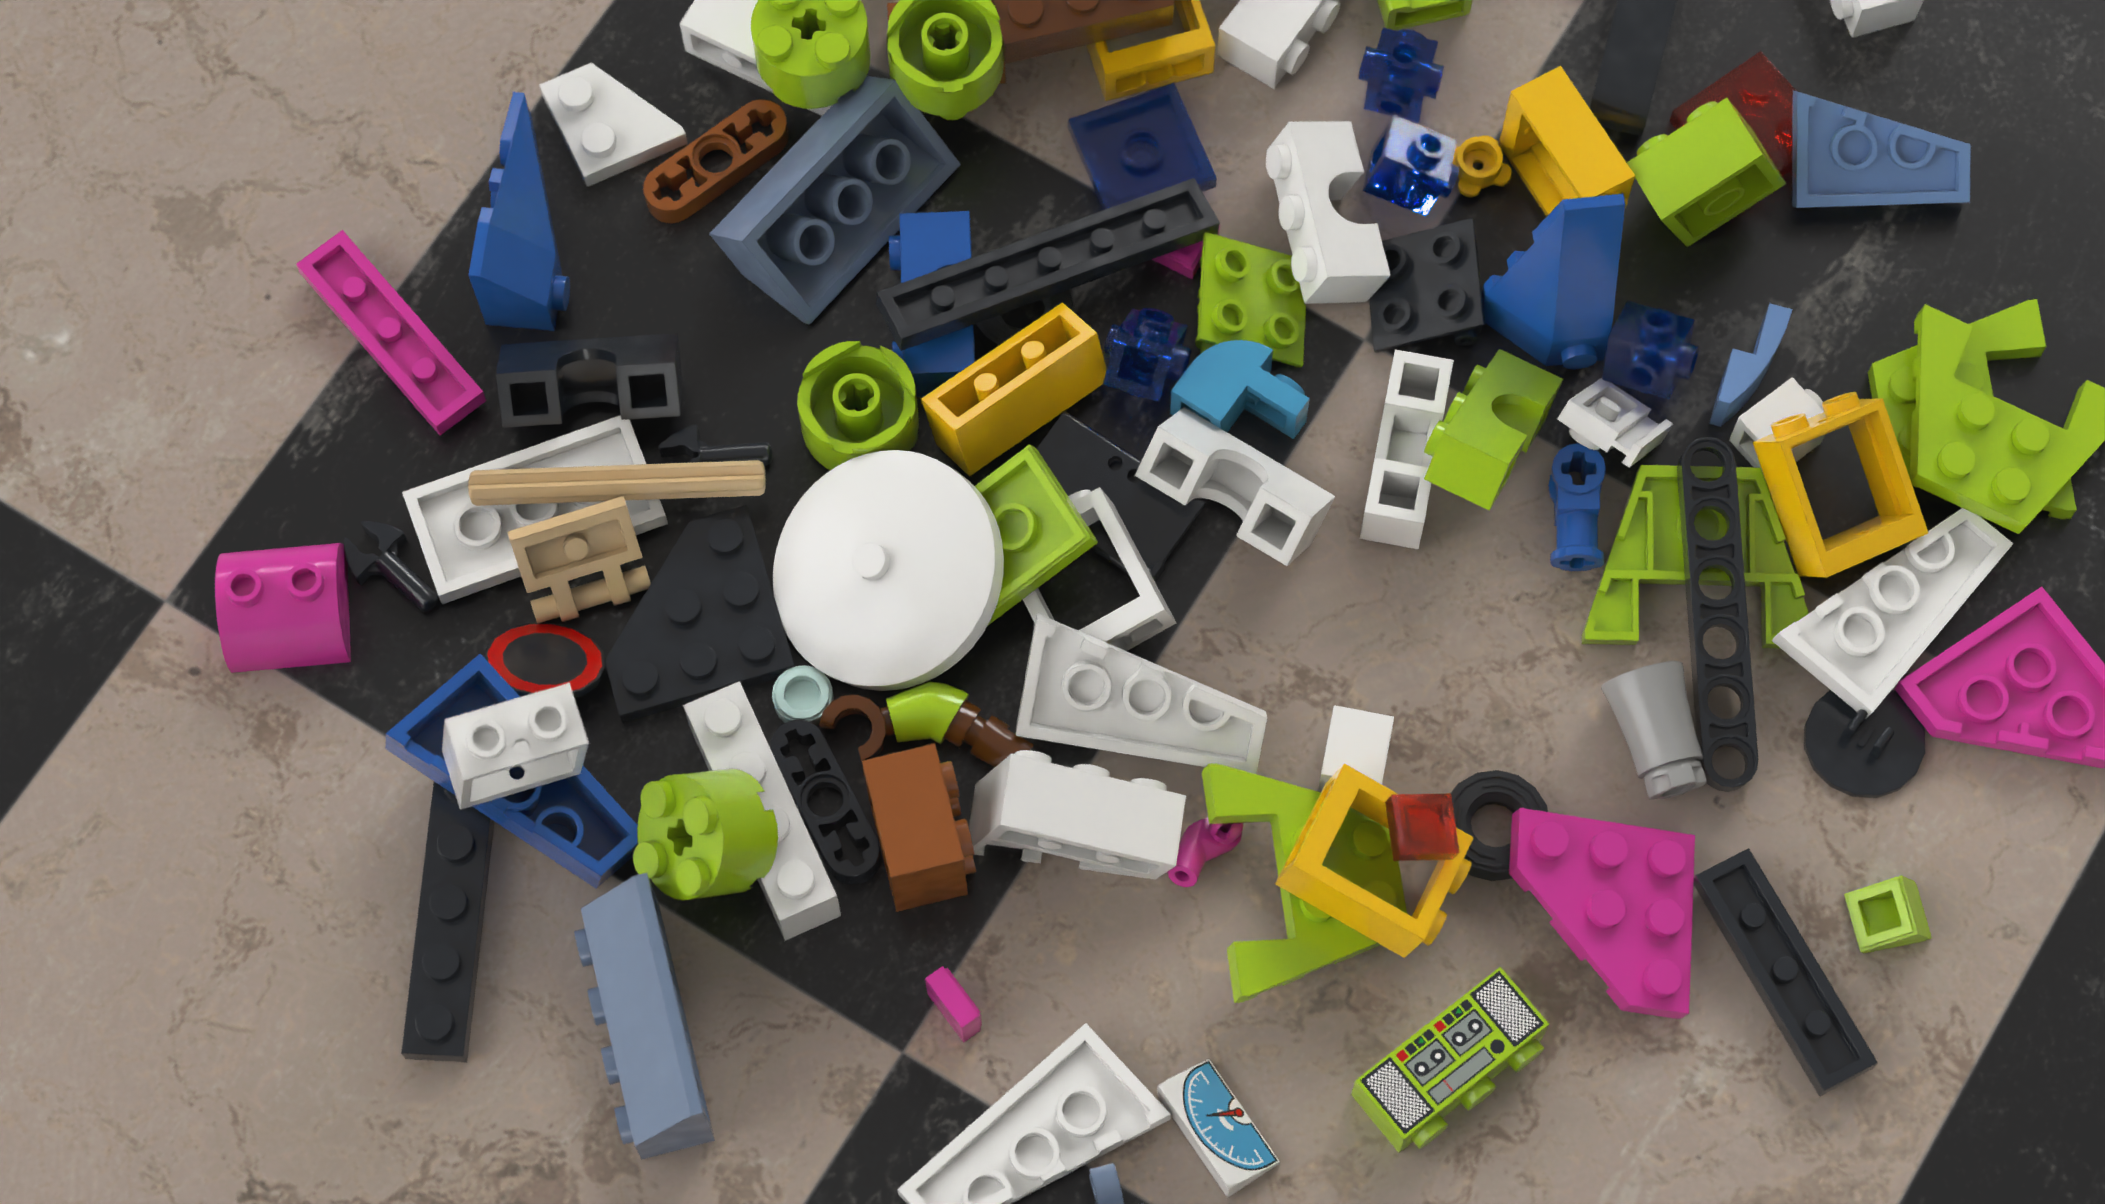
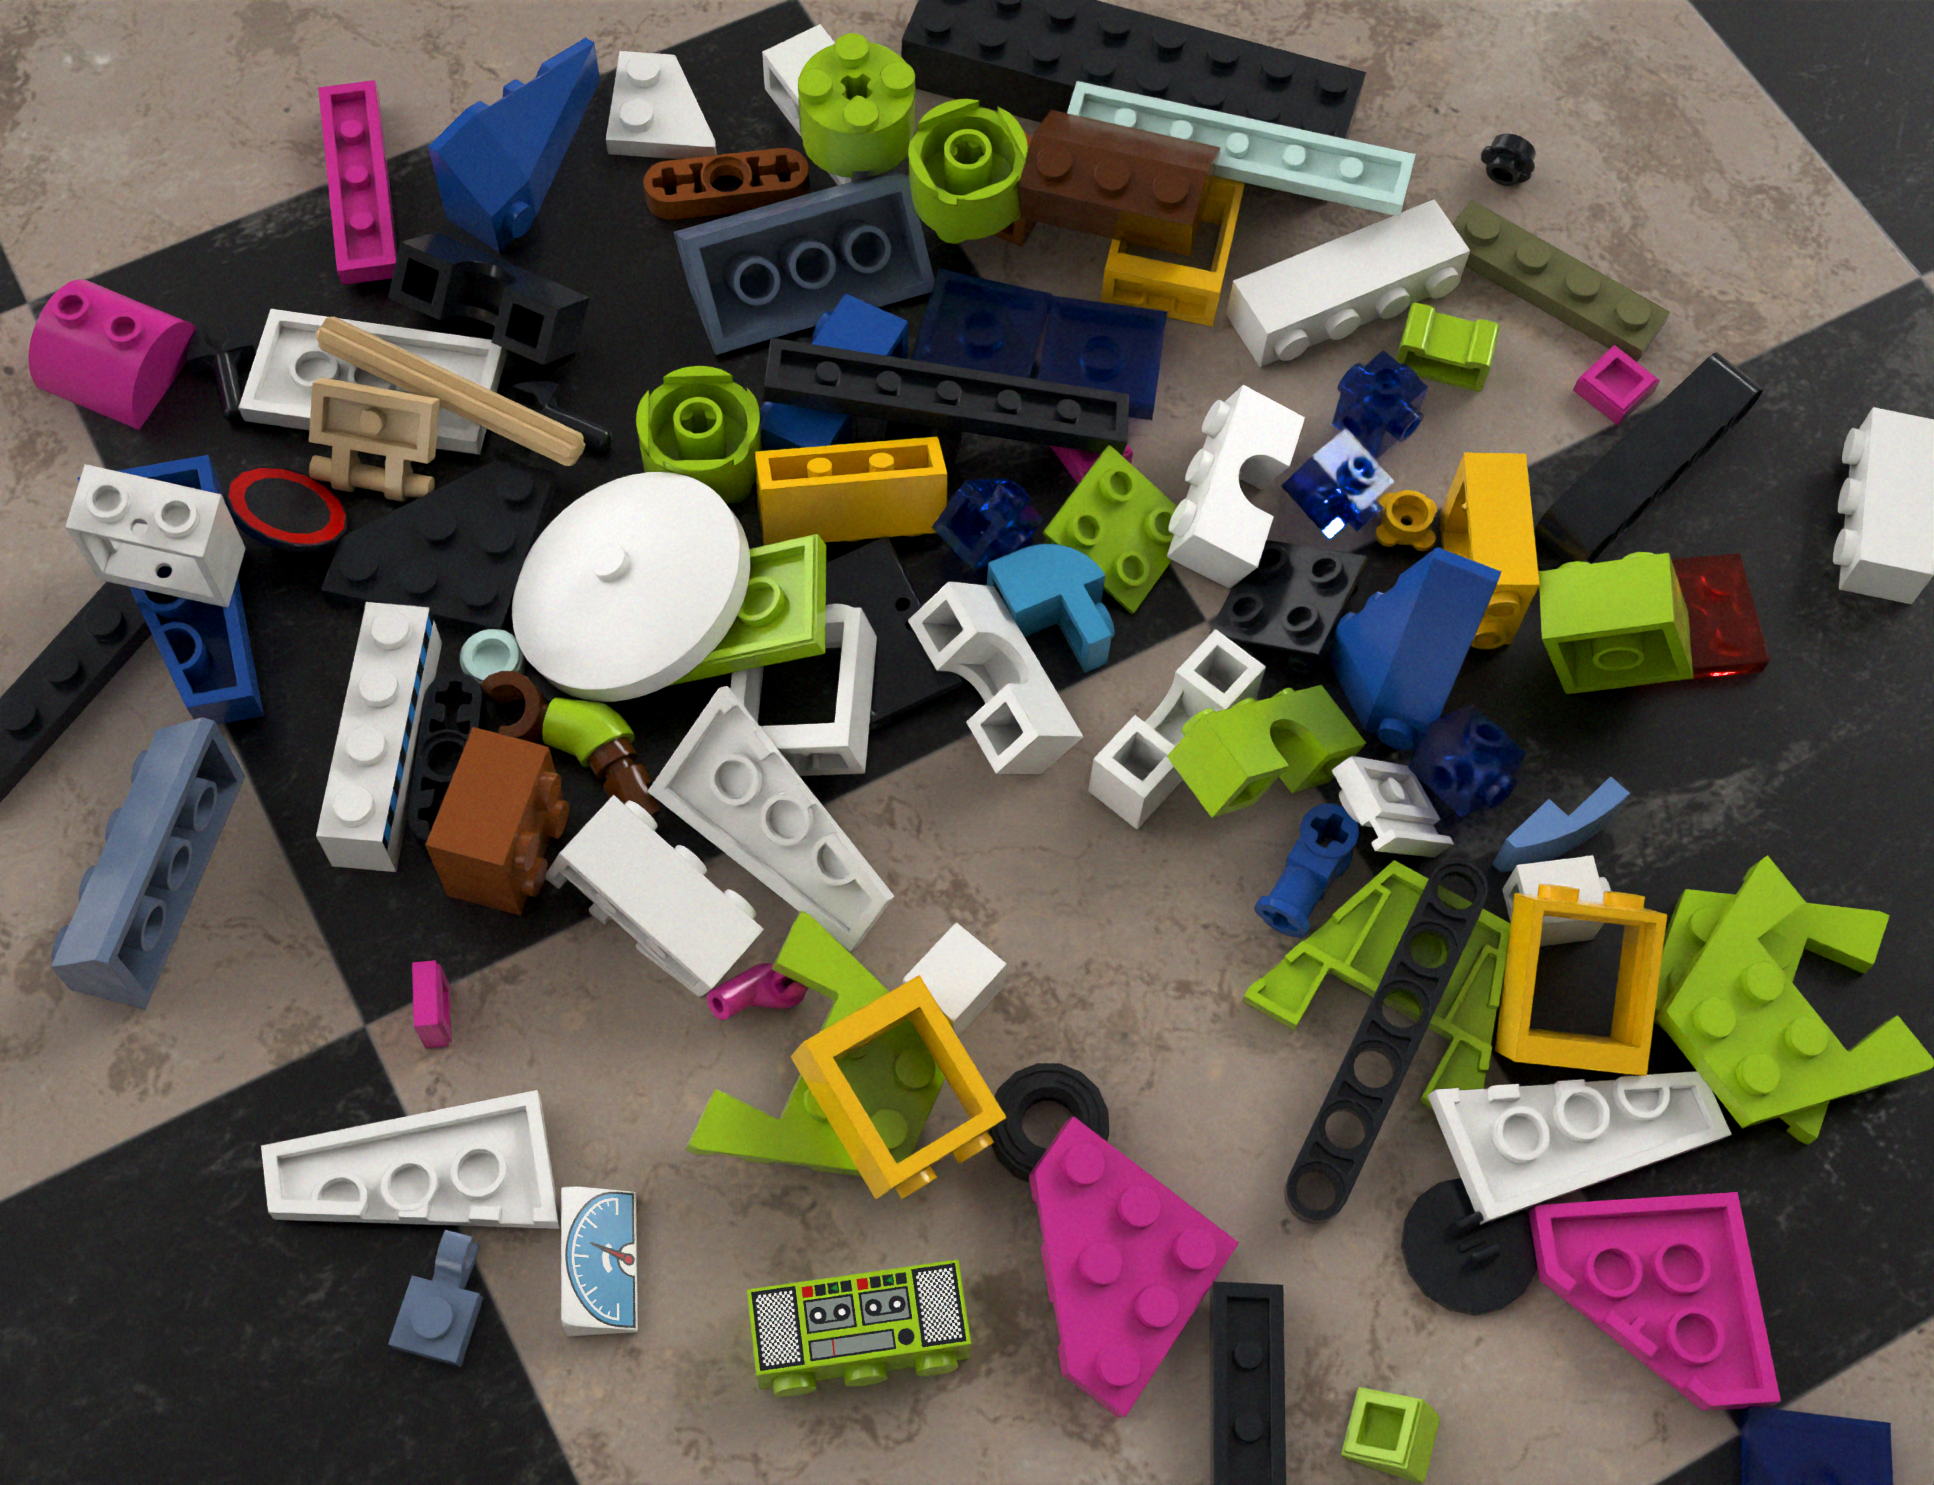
camera: 25 degrees right, 5 degrees down
(705, 834) = (296, 718): lime brick -> none
(1025, 182) = (982, 325): none -> clear blue plate
(1422, 827) = (956, 1077): clear red tile -> none
(1658, 727) = (1263, 1117): light grey plant -> none
(1871, 160) = (1792, 701): medium blue wing -> none

